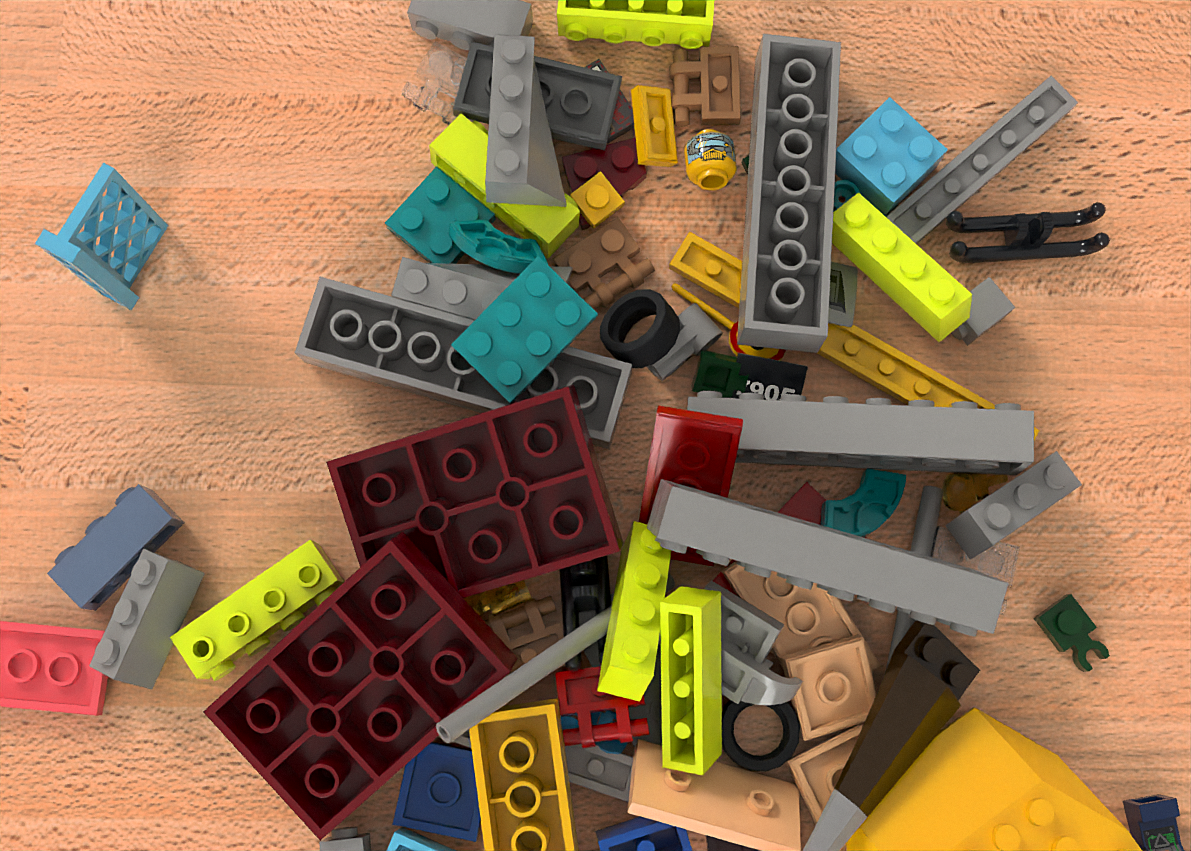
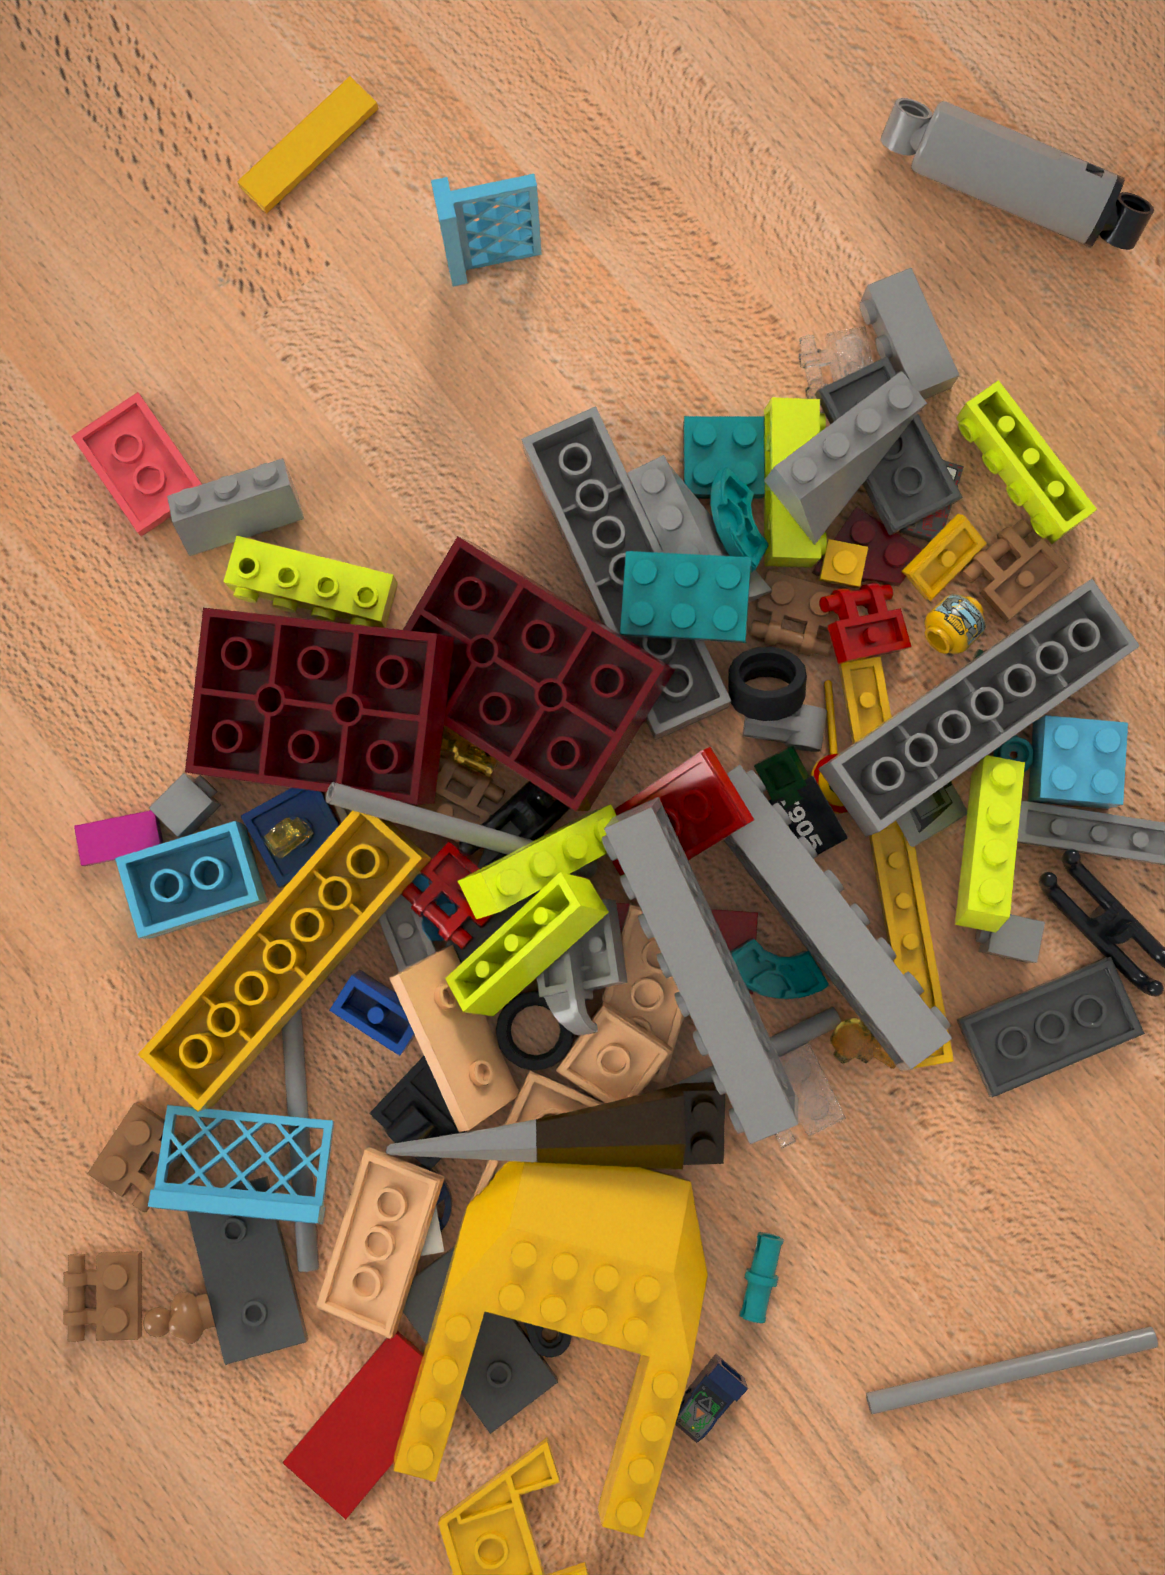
camera: 50 degrees right, 5 degrees up
(113, 546) = (267, 434): sand blue brick -> none
(442, 799) = (287, 836): none -> clear yellow plate
(666, 226) = (867, 635): none -> red plate
(1013, 505) = (873, 1086): light grey brick -> none
(1067, 340) = (1050, 1026): none -> dark grey plate
(1068, 628) = (816, 1207): dark green plate -> none
(1092, 715) = (761, 1277): none -> teal pin

